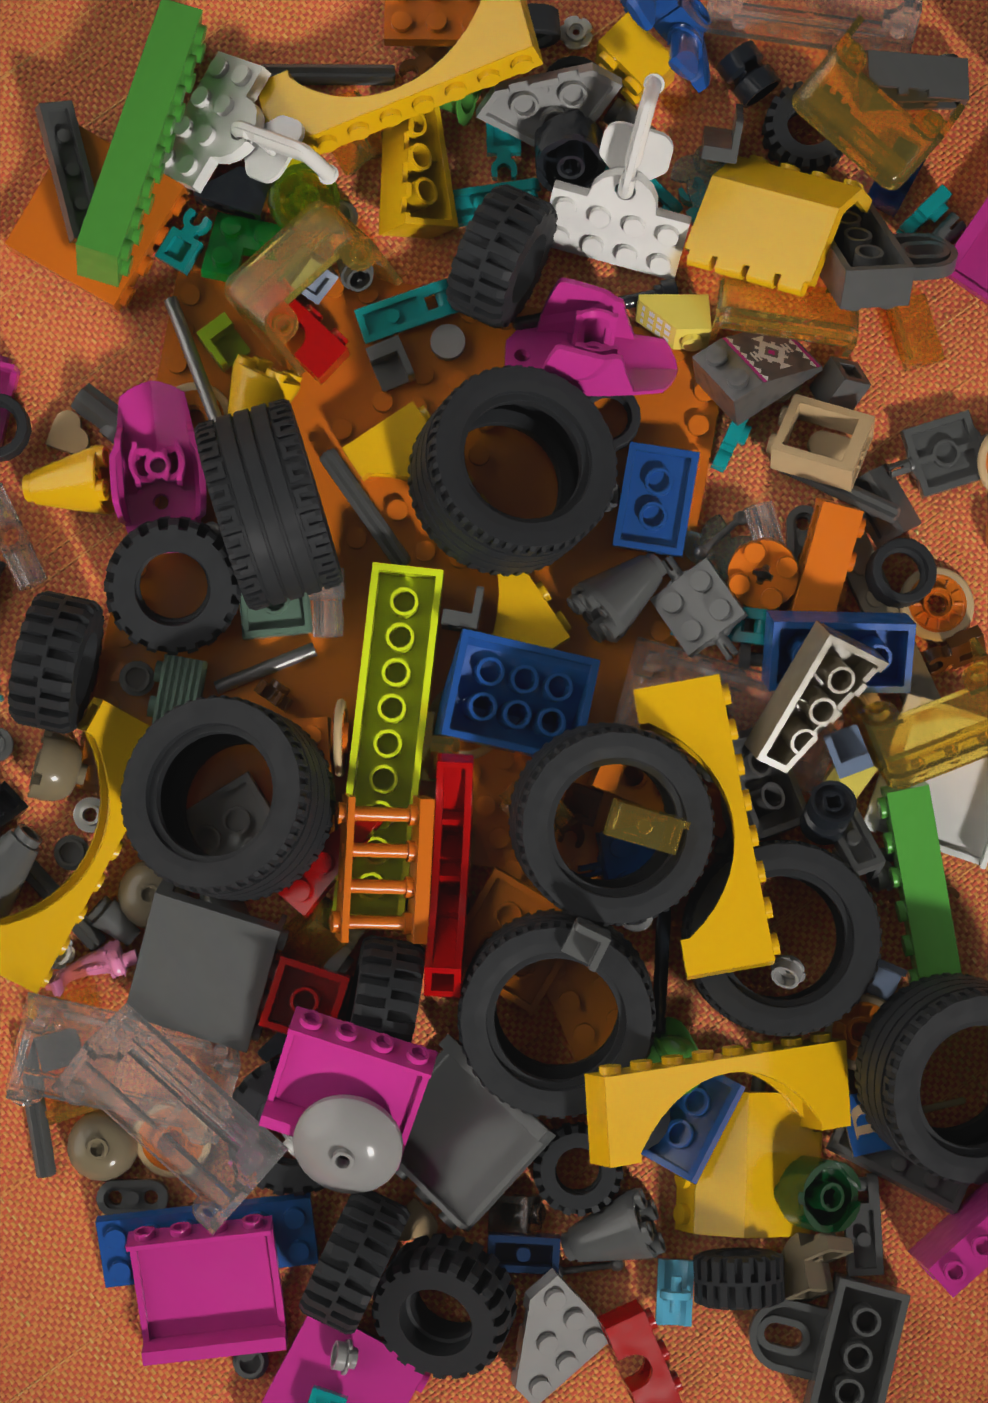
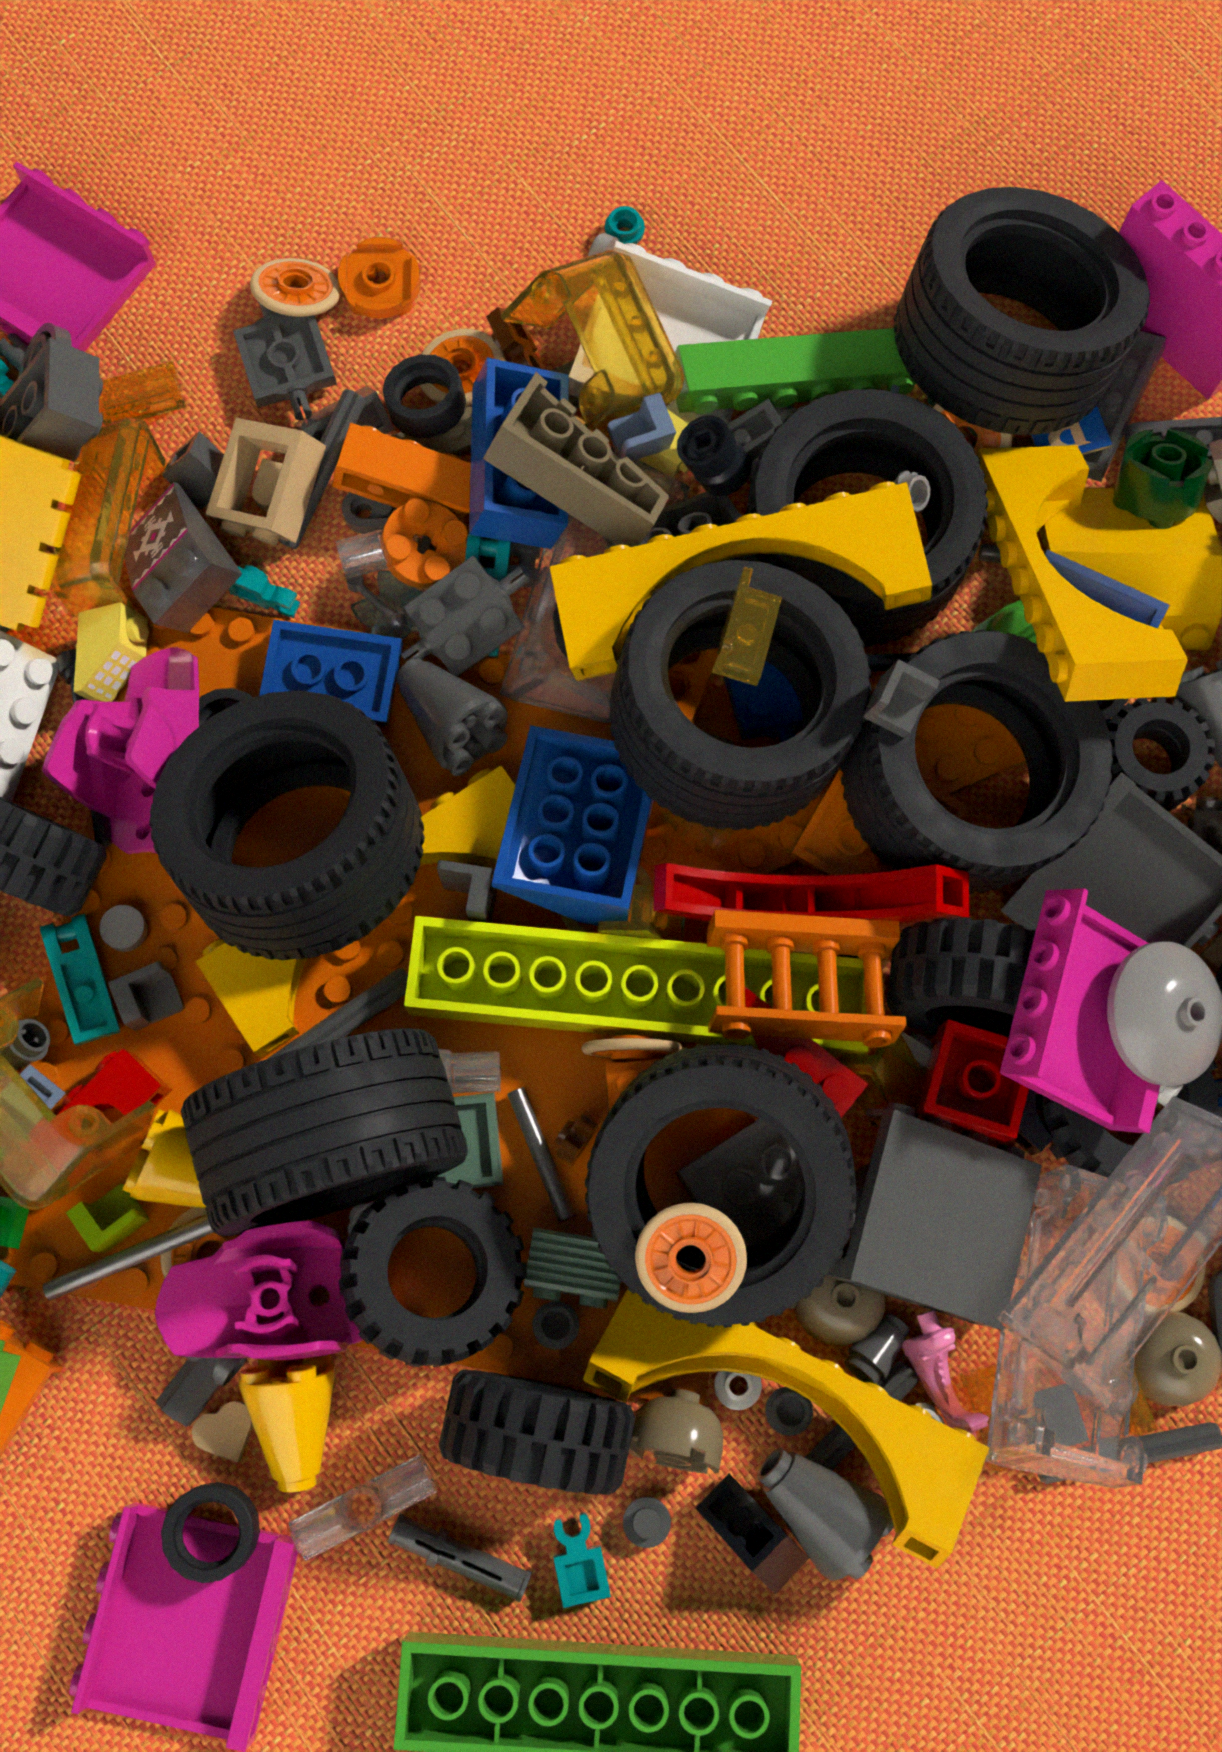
camera: 90 degrees left, 10 degrees down
(188, 771) = (691, 1289): none -> orange wheel

